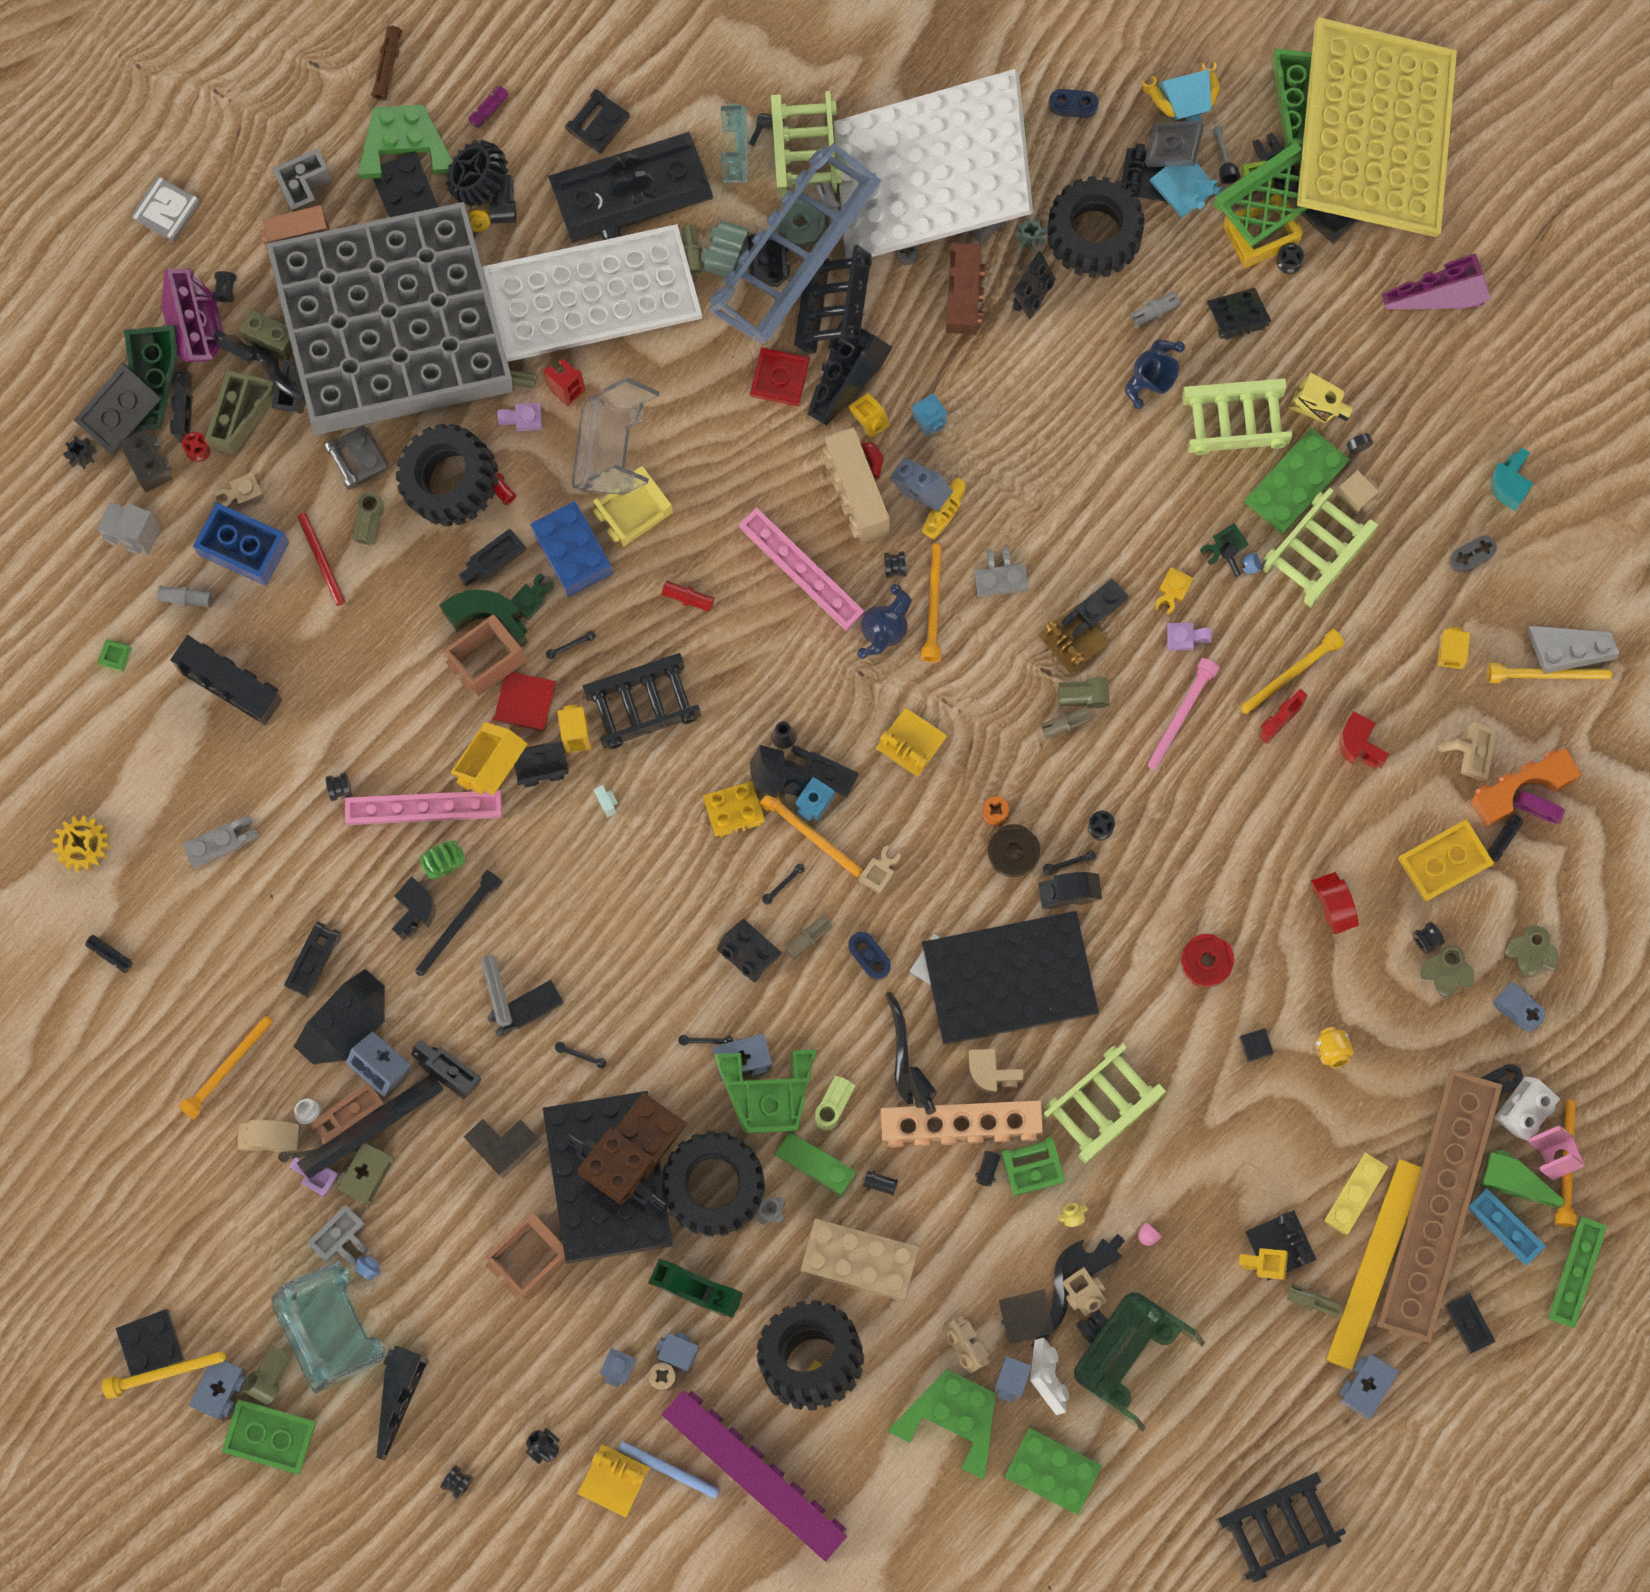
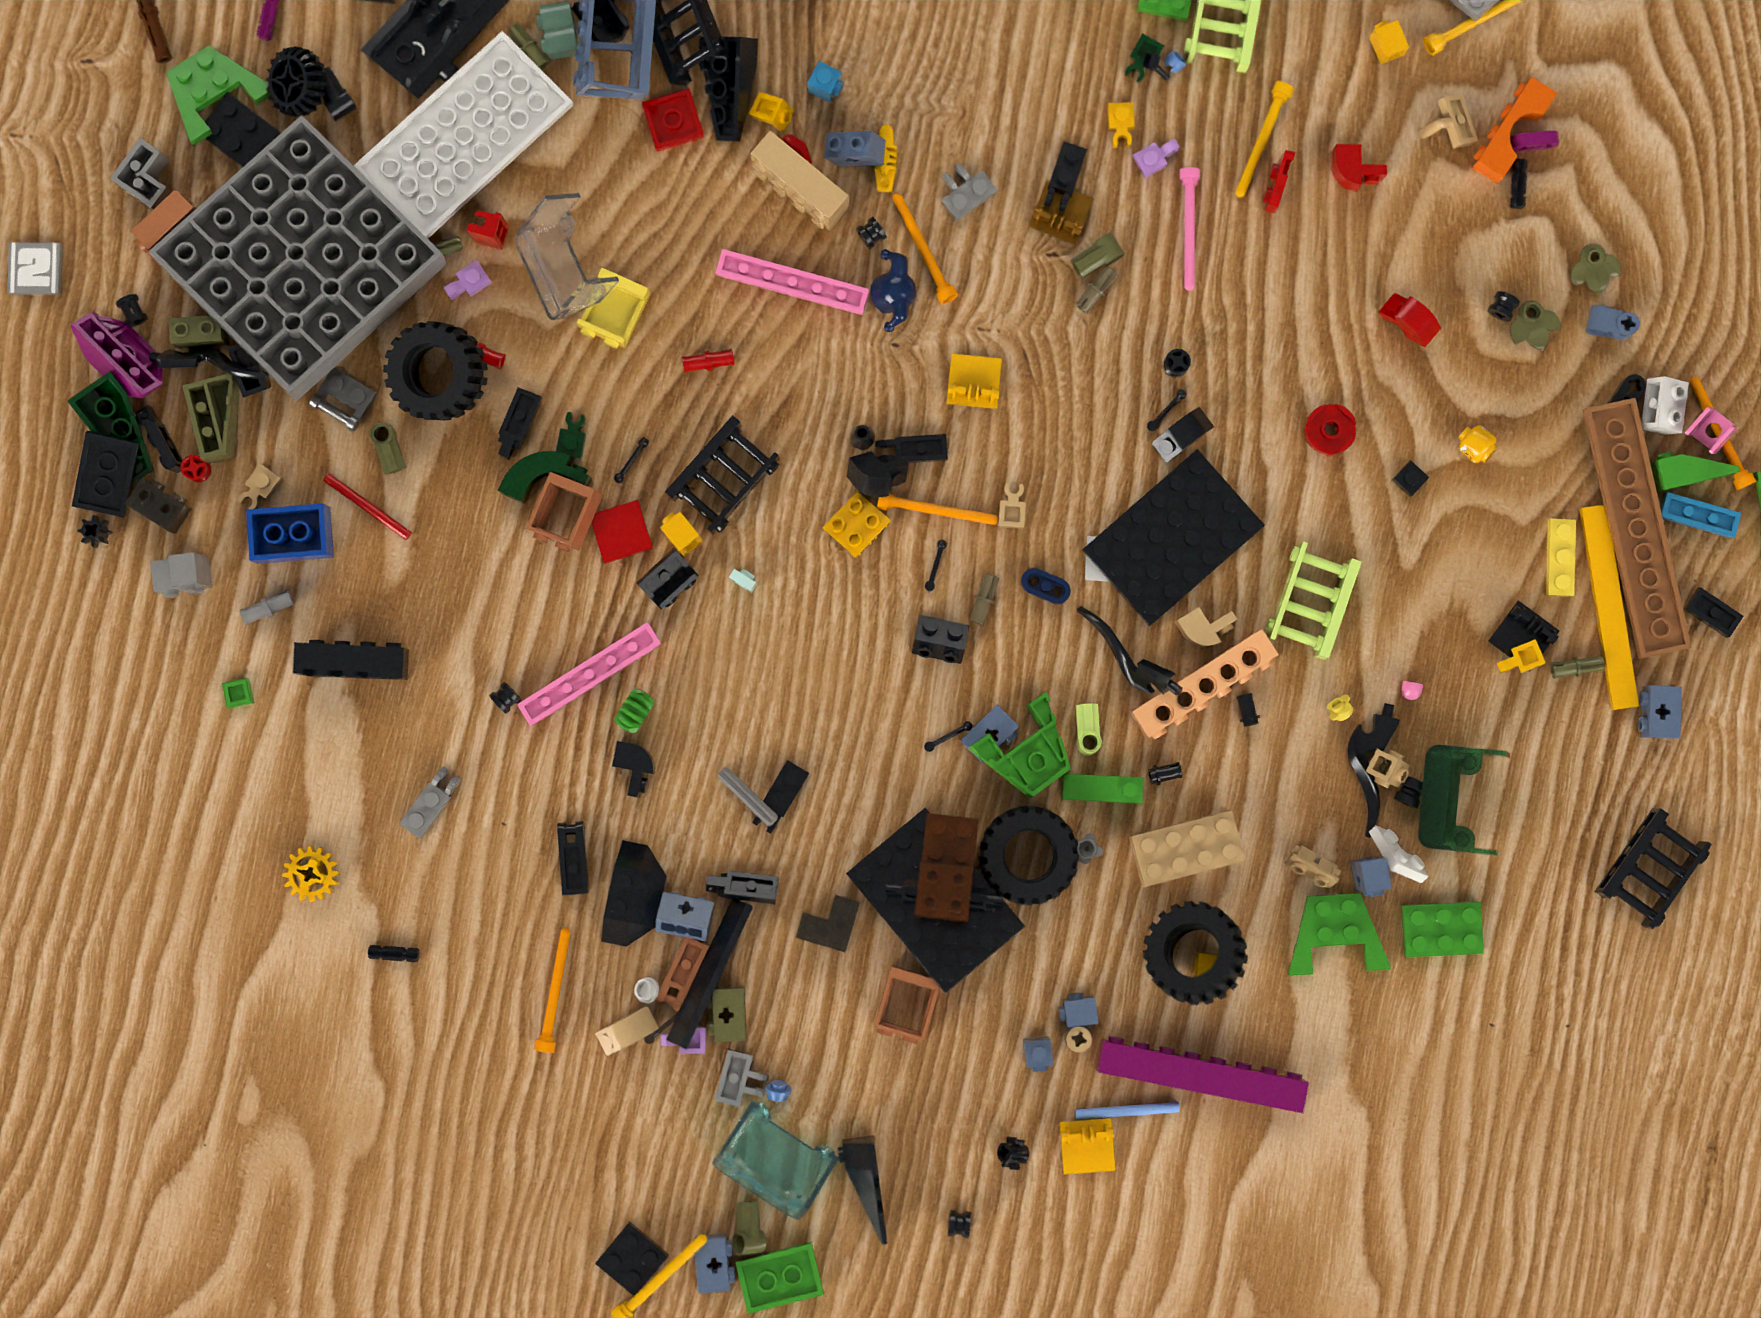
camera: 35 degrees left, 10 degrees up
(479, 219) = (323, 123): yellow plate -> none
(488, 759) = (610, 597): yellow window -> none
(488, 884) = (684, 708): black piece -> none
(560, 1048) = (828, 812): black hinge -> none
(571, 549) = (582, 375): blue brick -> none
(695, 1289) = (1066, 950): dark green arch -> none
(814, 800) = (922, 478): dark azure brick -> none
(998, 815) = (1080, 406): orange wheel -> none
(1002, 841) = (1116, 412): dark brown plate -> none
(1026, 1316) = (1349, 814): clear smoke piece -> none
(1033, 1175) = (1290, 693): bright green plate -> none
(1445, 860) = (1481, 231): yellow plate -> none

